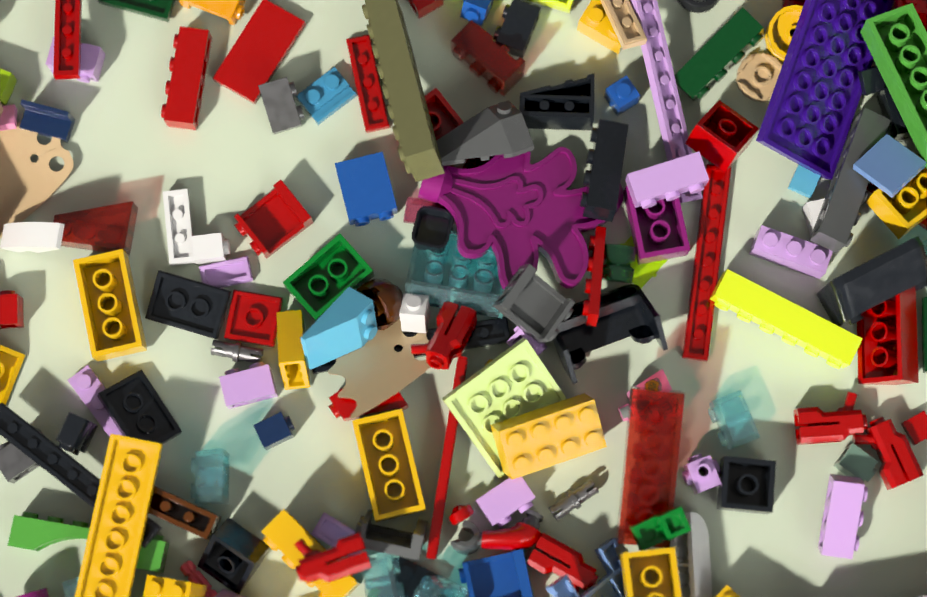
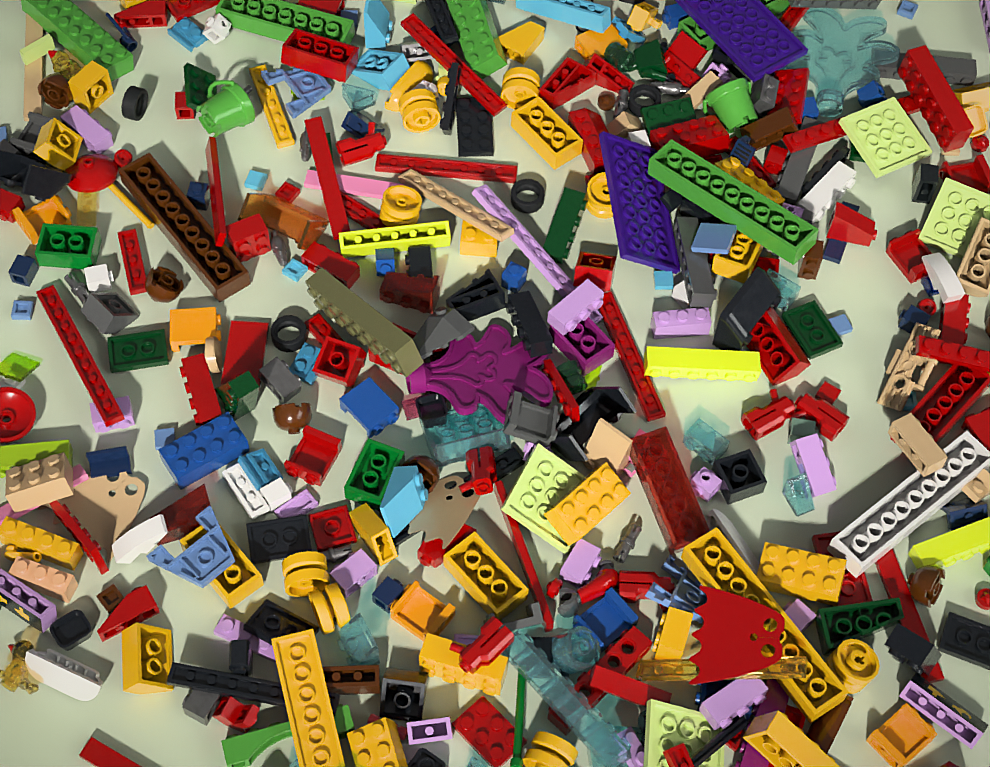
camera: 30 degrees left, 20 degrees down
(46, 491) = (236, 714): none -> red brick
(86, 298) = (203, 559): none -> medium blue wing
(121, 117) = (164, 437): none -> medium blue tile
(155, 155) = (204, 450): none -> blue brick
(192, 366) = (305, 573): none -> yellow wheel
(198, 420) = (327, 609): none -> yellow wheel
(206, 208) = (259, 468): none -> dark azure plate
(216, 104) = (239, 395): none -> dark green wedge
(219, 38) = (213, 354): none -> tan piece
(272, 161) = (292, 417): none -> reddish brown cylinder
(300, 470) = (421, 612): none -> light orange panel
(321, 28) = (288, 321): none -> black tyre
(356, 116) = (339, 362): none -> red brick
(415, 313) = (448, 469): white brick -> none
(605, 382) = (608, 446): none -> tan slope
(660, 528) = (699, 523): green slope -> none
(758, 76) = (598, 231): tan tile -> none
(805, 542) = (798, 494): none -> clear light blue slope

